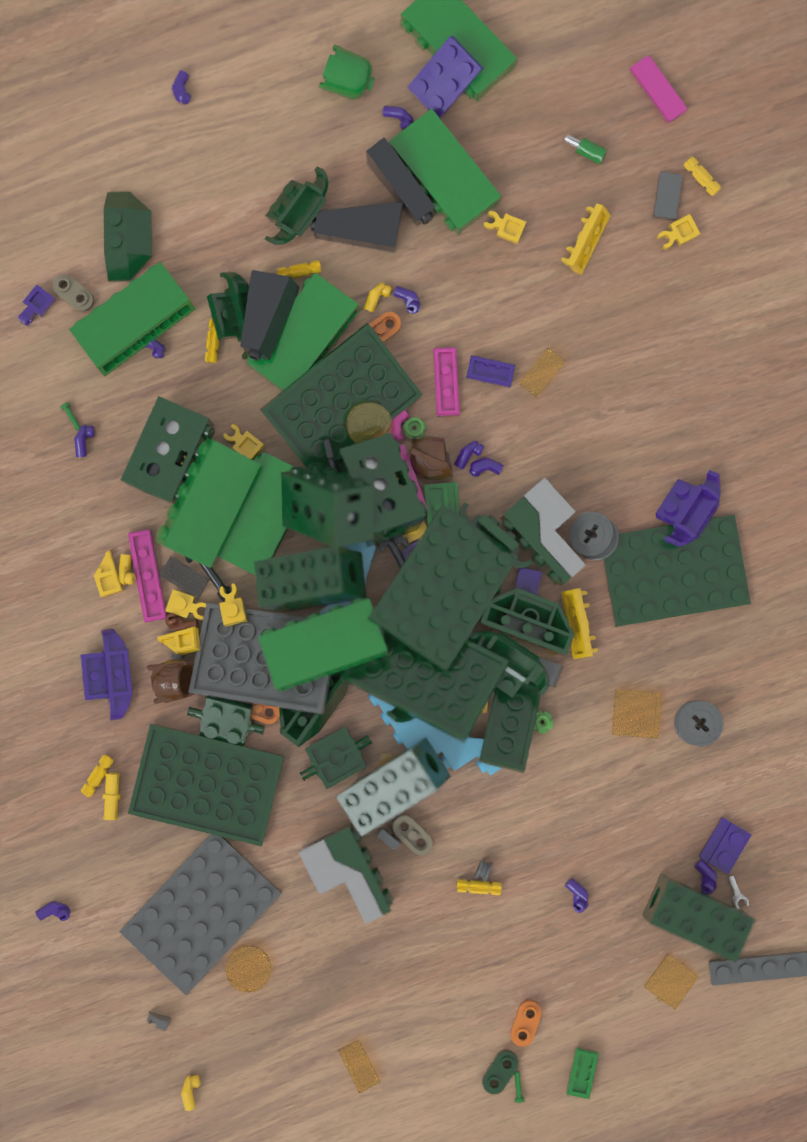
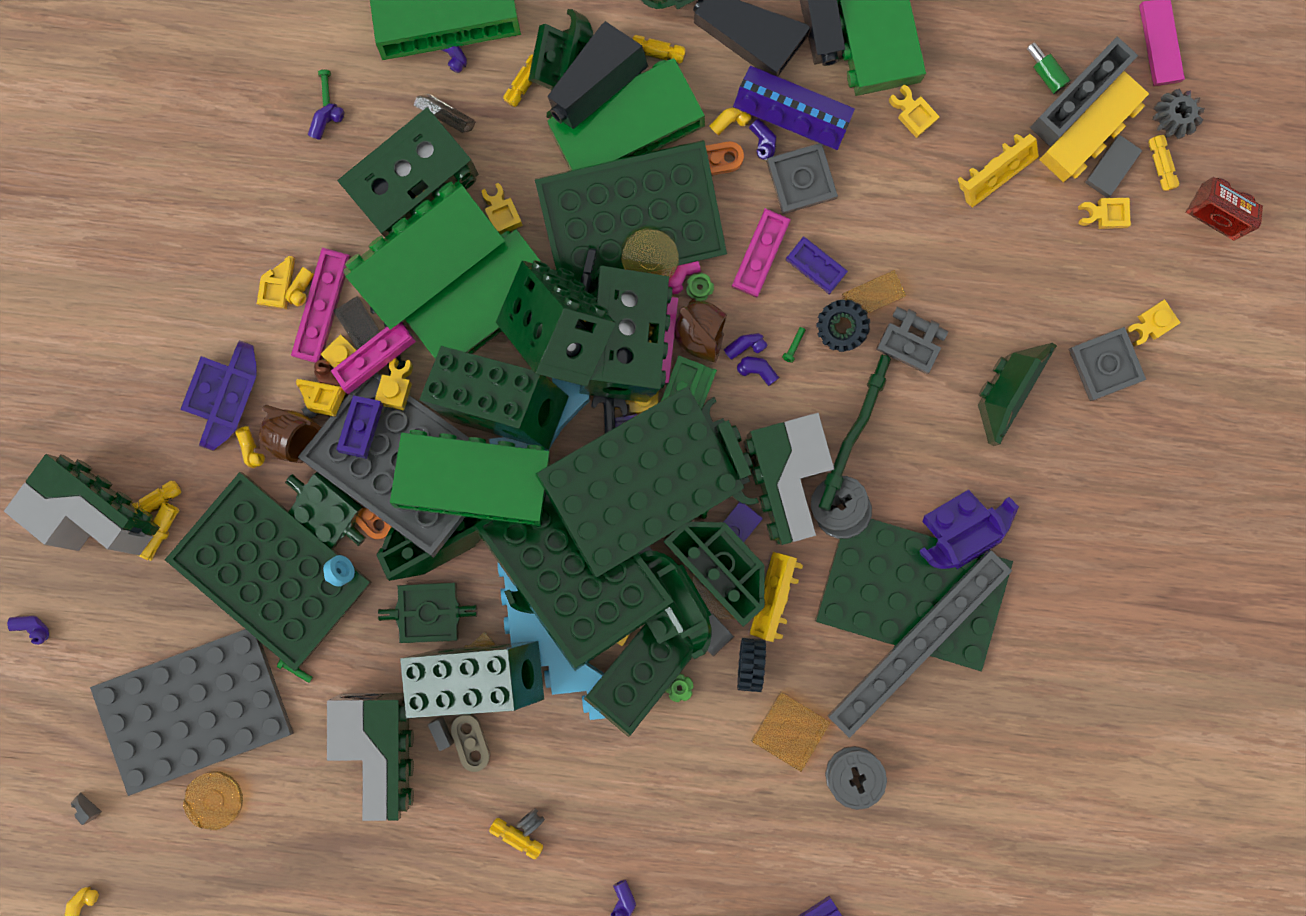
camera: 30 degrees right, 0 degrees up
(38, 805) = (68, 504): none -> piece
(147, 704) = (247, 446): none -> yellow arm
(168, 392) = (445, 113): none -> clear smoke tile
(205, 594) = (372, 357): none -> dark pink tile
(223, 648) = (359, 427): none -> dark purple plate
(258, 758) = (338, 570): none -> medium azure tile
(264, 847) = (301, 674): none -> green piece
(419, 266) = (793, 107): none -> dark purple brick
(449, 314) = (802, 178): none -> dark grey plate
(503, 447) = (789, 355): none -> green piece
(519, 404) = (832, 314): none -> black bush
(579, 519) = (834, 479): none -> dark green bar
(585, 398) = (908, 347): none -> dark grey plate
(585, 679) = (751, 665): none -> black bush
(620, 154) = (1083, 91): none -> dark grey brick
(640, 174) = (1094, 126): none -> yellow brick
(672, 392) = (1010, 388): none -> dark green wedge
(694, 144) = (1178, 114): none -> dark grey gear
(696, 605) = (919, 643): none -> dark grey plate
(732, 340) = (1107, 364): none -> dark grey plate
(752, 293) = (1155, 322): none -> yellow plate
(762, 189) = (1226, 209): none -> clear red slope

